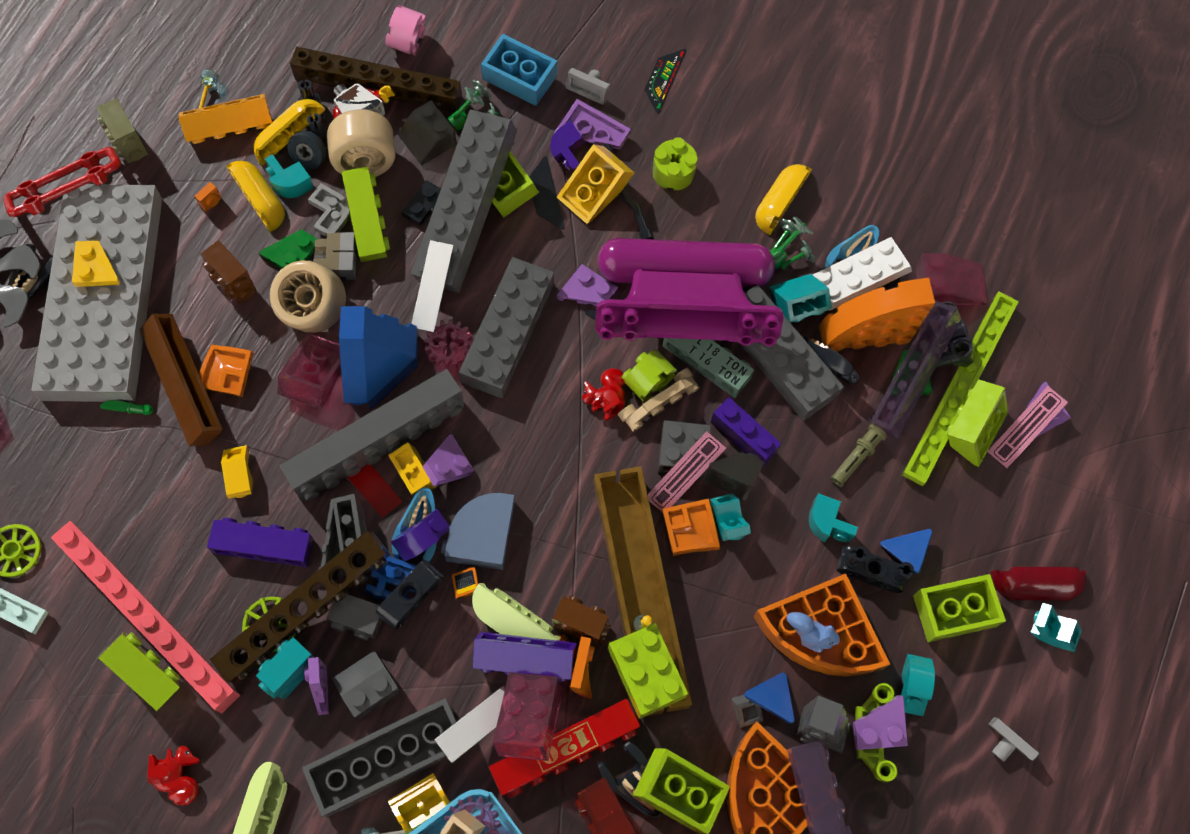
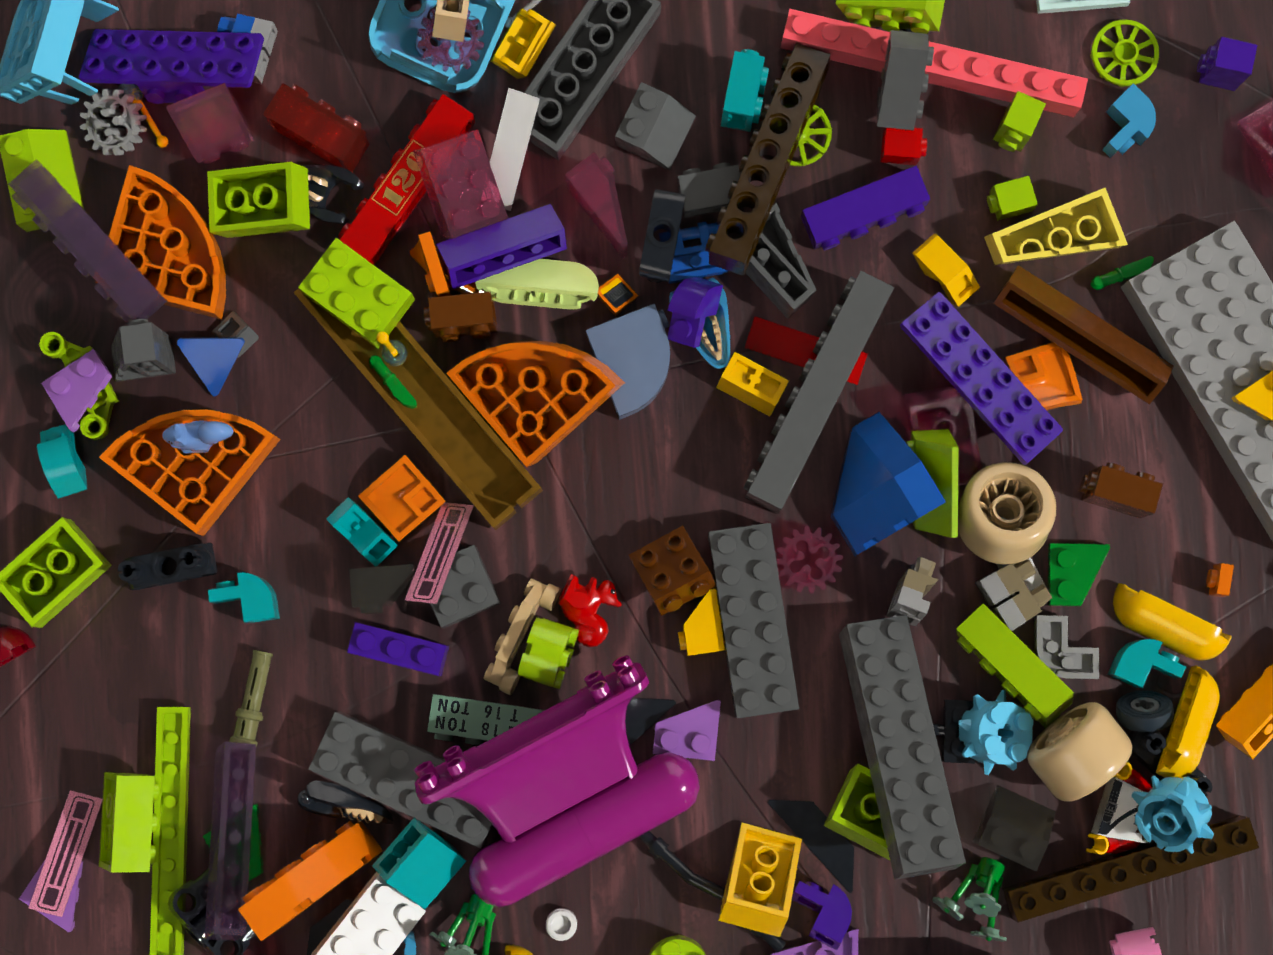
camera: 155 degrees right, 15 degrees up
(40, 499) = (1135, 116): none -> dark azure brick
(118, 536) = (1019, 122): none -> lime brick
(146, 452) = (1068, 229): none -> light yellow wedge
(160, 493) = (1012, 198): none -> lime brick
(173, 602) = (903, 80): none -> dark grey wedge
(206, 569) = (903, 146): none -> red brick
(264, 384) = (981, 378): none -> dark purple bracket
(316, 675) = (704, 97): medium lavender wing -> none
(324, 341) = (940, 457): none -> lime slope
(331, 79) = (1173, 813): none -> medium azure brick
(397, 287) = (910, 590): none -> hips
(402, 183) = (996, 732): none -> medium azure brick
(432, 285) = (869, 611): white sticker -> none
(434, 652) = (595, 191): none -> clear pink slope
(447, 463) = (718, 413): medium lavender wing -> none
(539, 379) = (672, 570): none -> reddish brown brick
(541, 340) = (703, 628): none -> yellow slope
(561, 541) = (534, 392): none -> orange brick
(654, 596) = (394, 385): none -> green piece
(730, 227) = (561, 924): none -> white tile
(909, 548) = (139, 615): blue piece -> none

